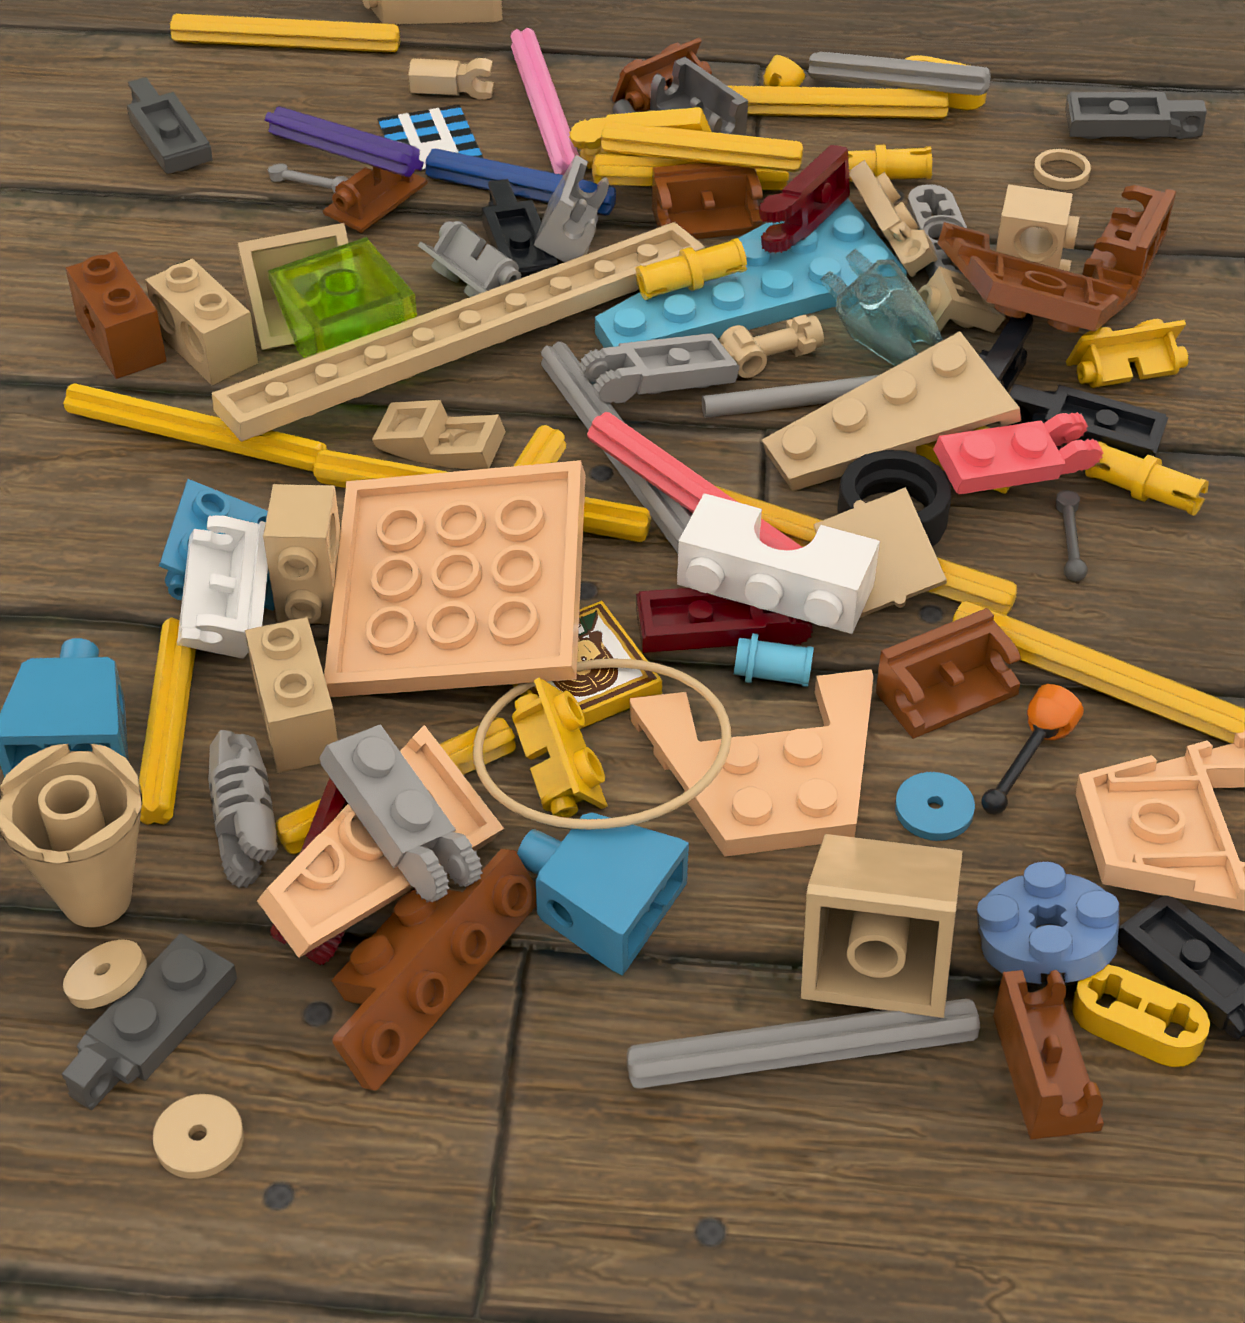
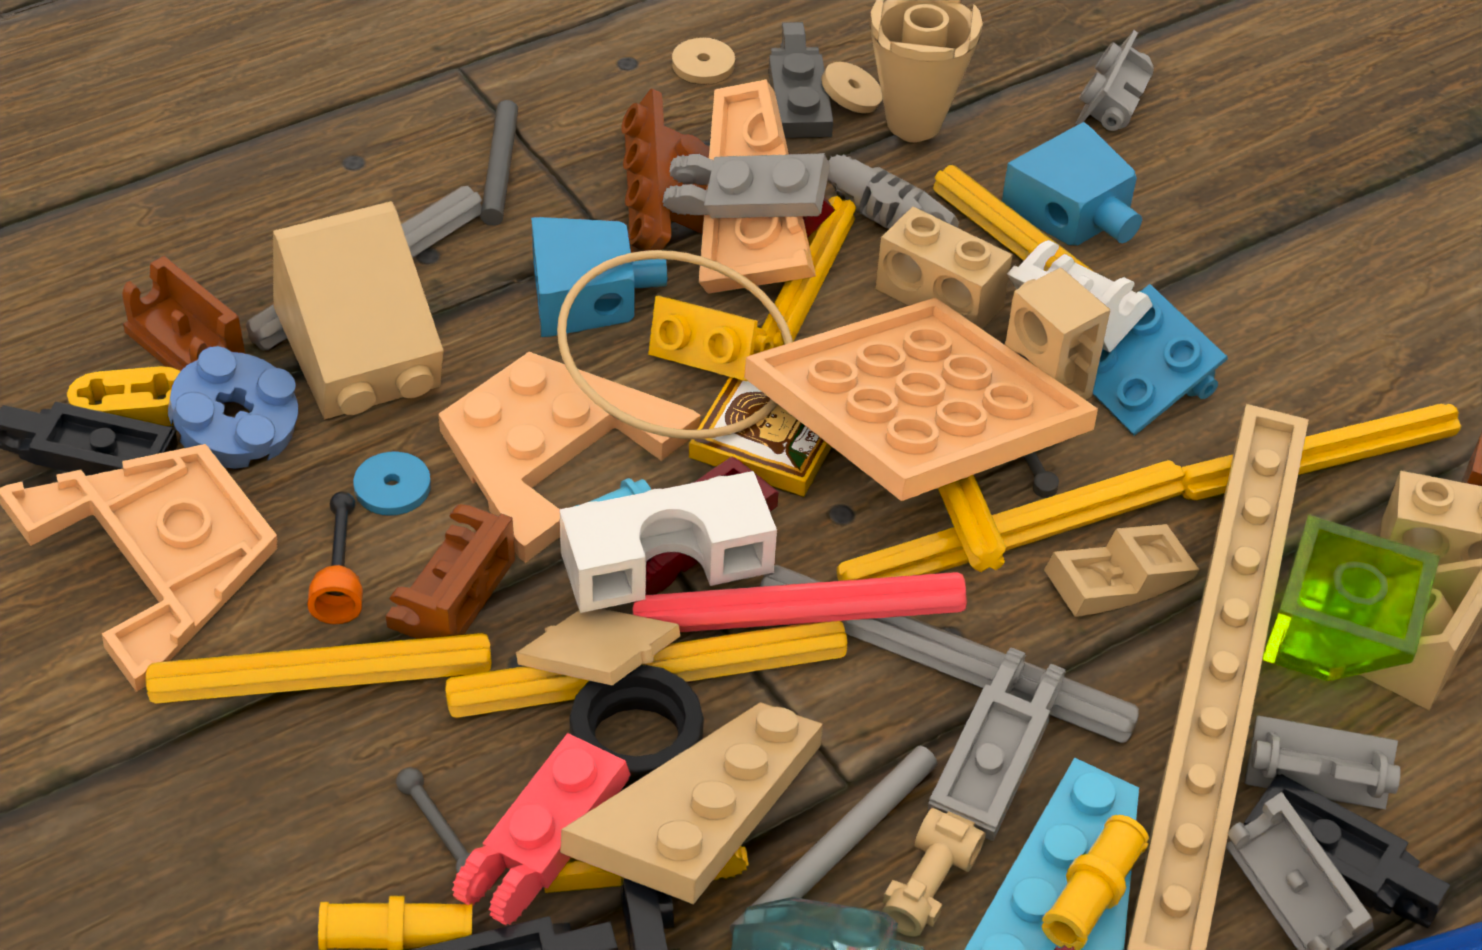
camera: 140 degrees right, 0 degrees up
(554, 1114) = (499, 163): none -> dark grey bar

